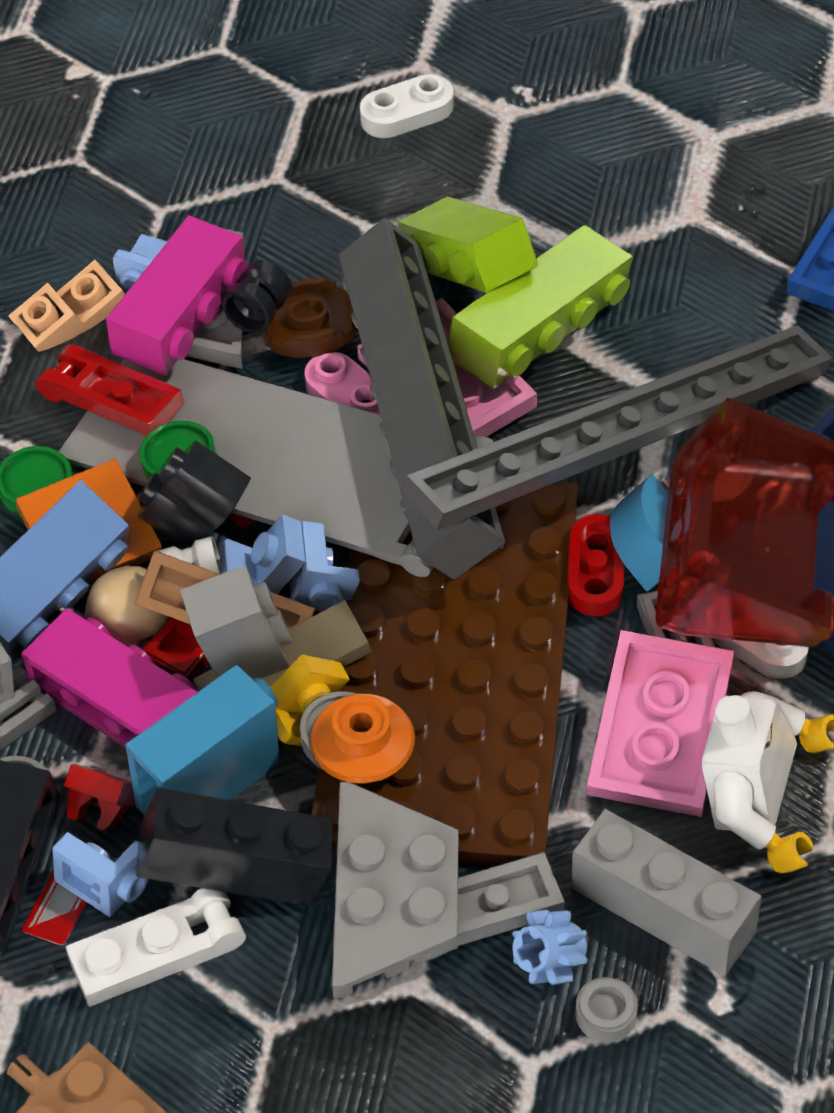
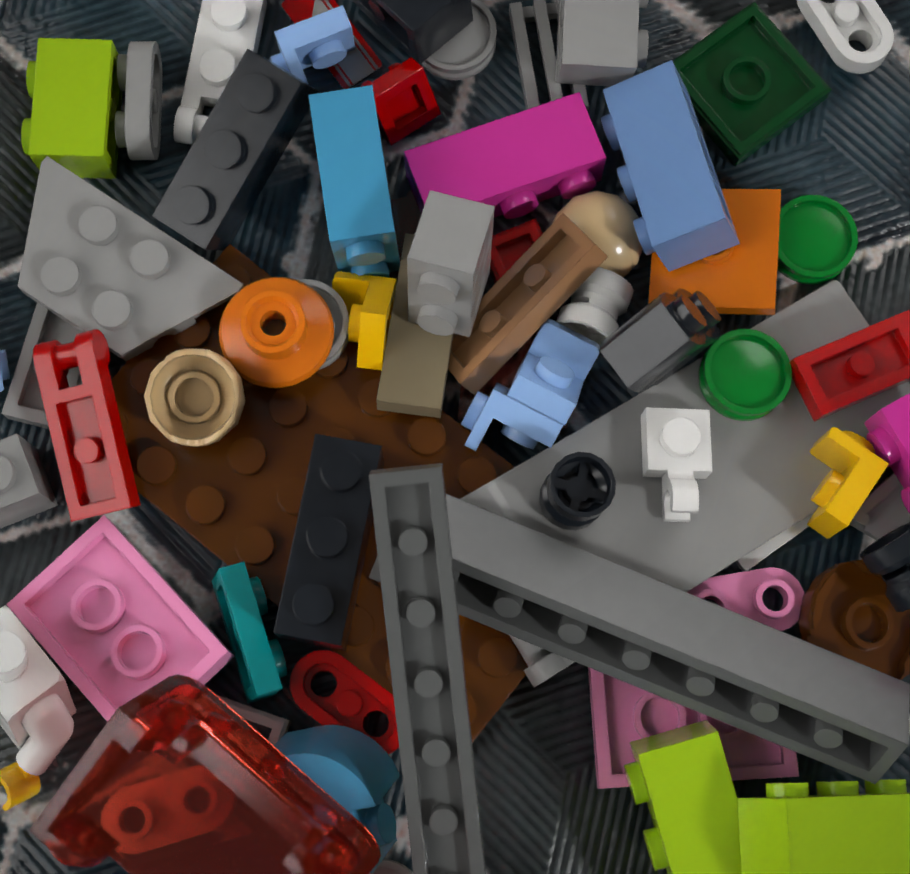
camera: 120 degrees right, 25 degrees up
(222, 354) = (848, 483): none -> yellow bracket
(230, 969) = (141, 77): none -> light grey plate
(270, 1016) = (74, 106): none -> lime brick
(273, 458) = (679, 451): none -> white plate
(346, 483) = (584, 480): none -> black wheel
(453, 748) = (194, 397): none -> tan hair
(496, 606) = (329, 544): none -> black brick
(530, 817) = (85, 426): none -> plate
(590, 653) = (241, 606): none -> teal plate

